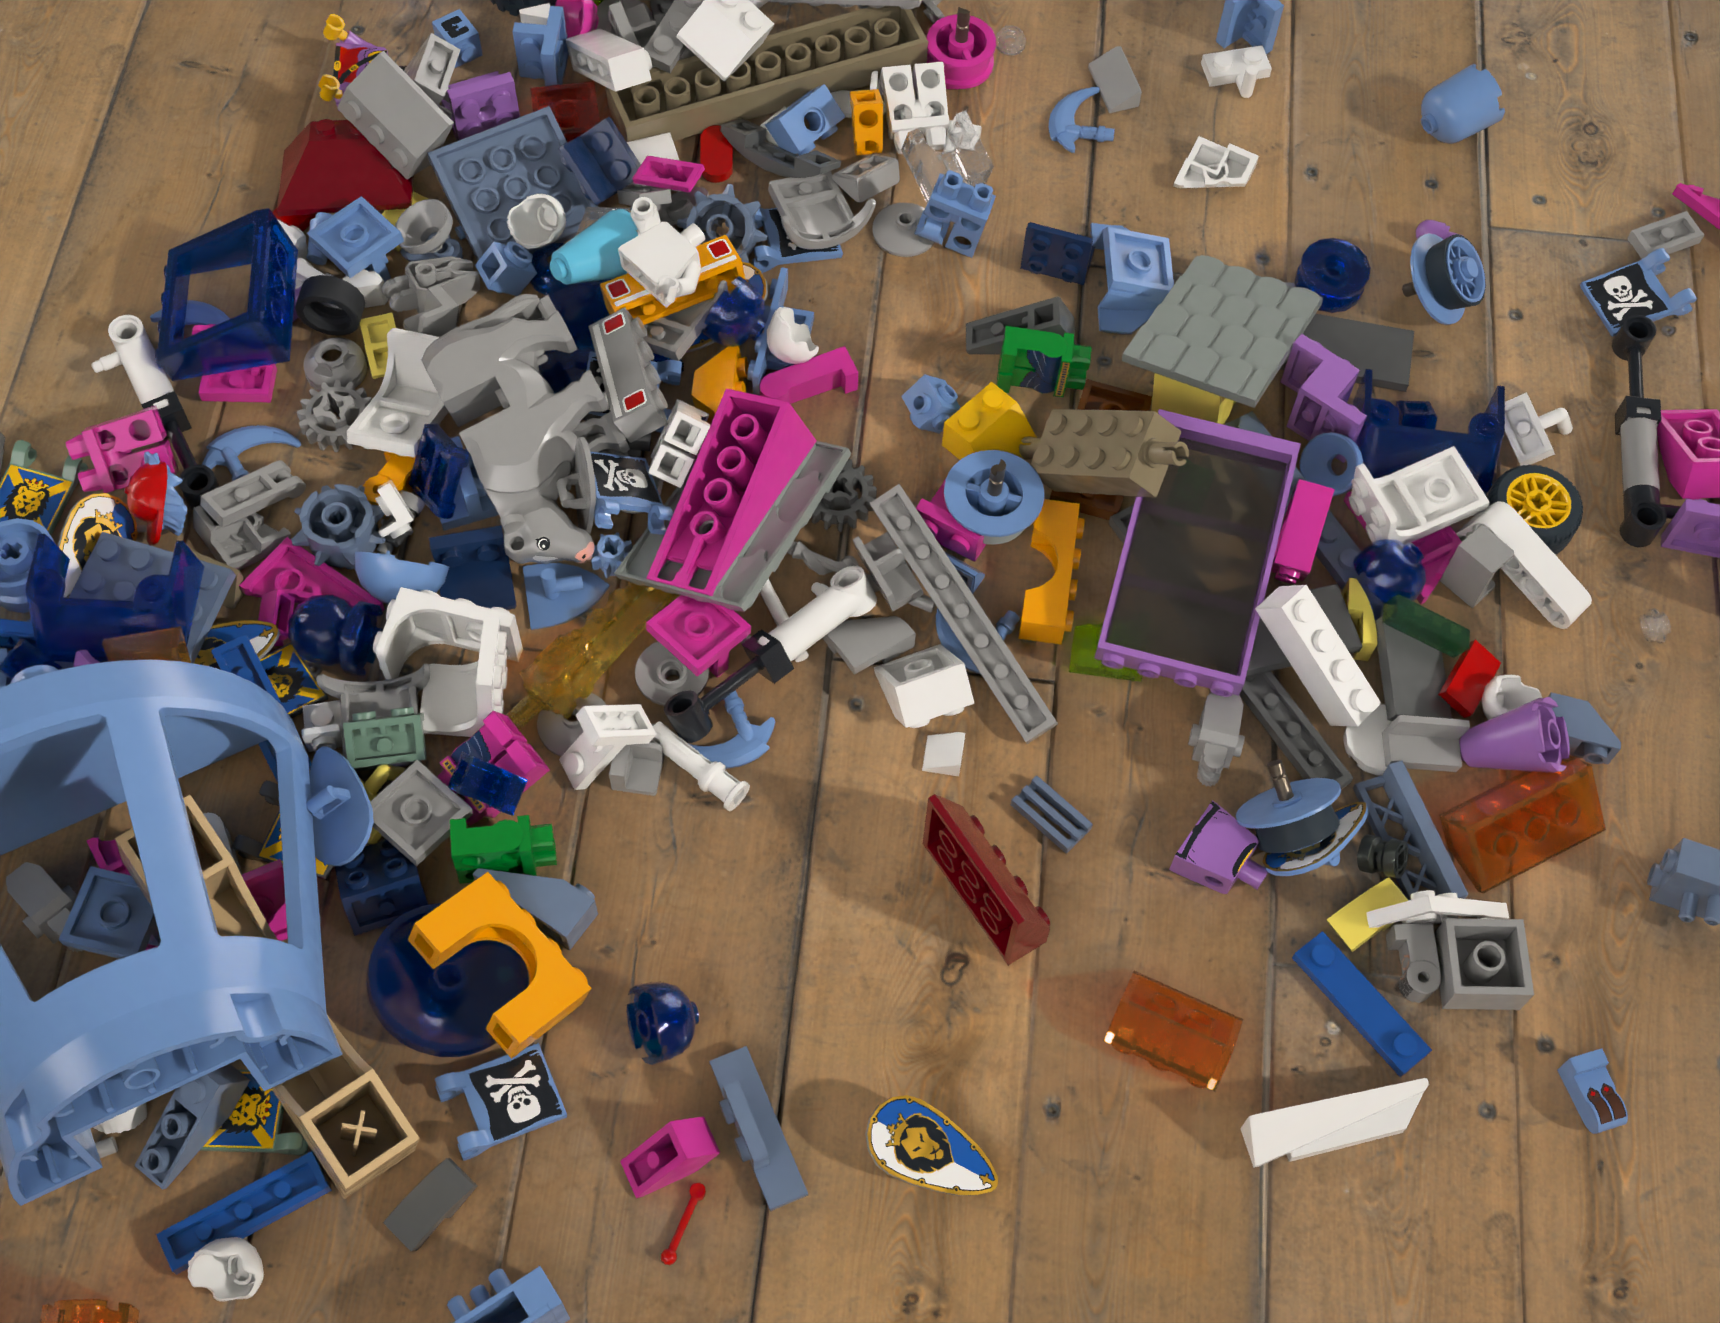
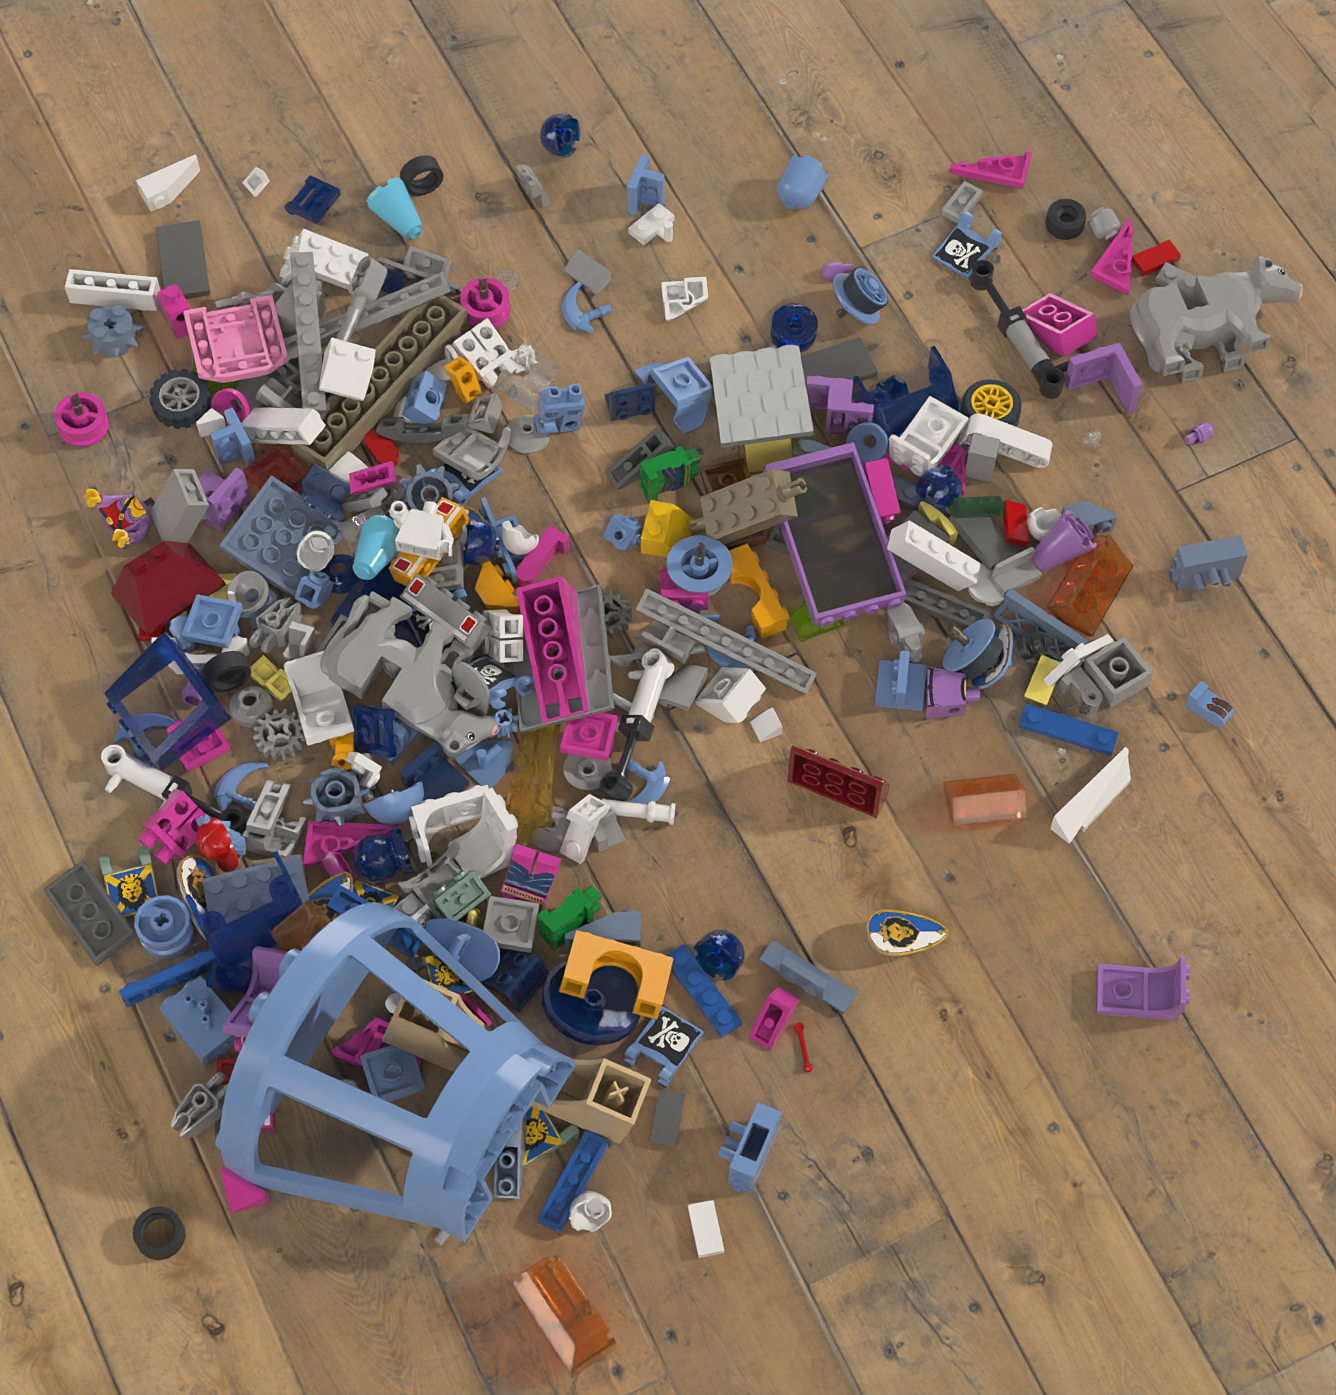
camera: 30 degrees left, 0 degrees up
(395, 115) = (185, 532): light grey slope -> none
(461, 33) = (164, 460): medium blue brick -> none
(487, 783) = (541, 884): clear blue slope -> none
(605, 1059) = (703, 992): none -> blue plate
(1061, 805) = (845, 721): sand blue tile -> none
(1164, 803) = (901, 684): none -> medium blue bracket
(1527, 430) = (959, 363): white plate -> none

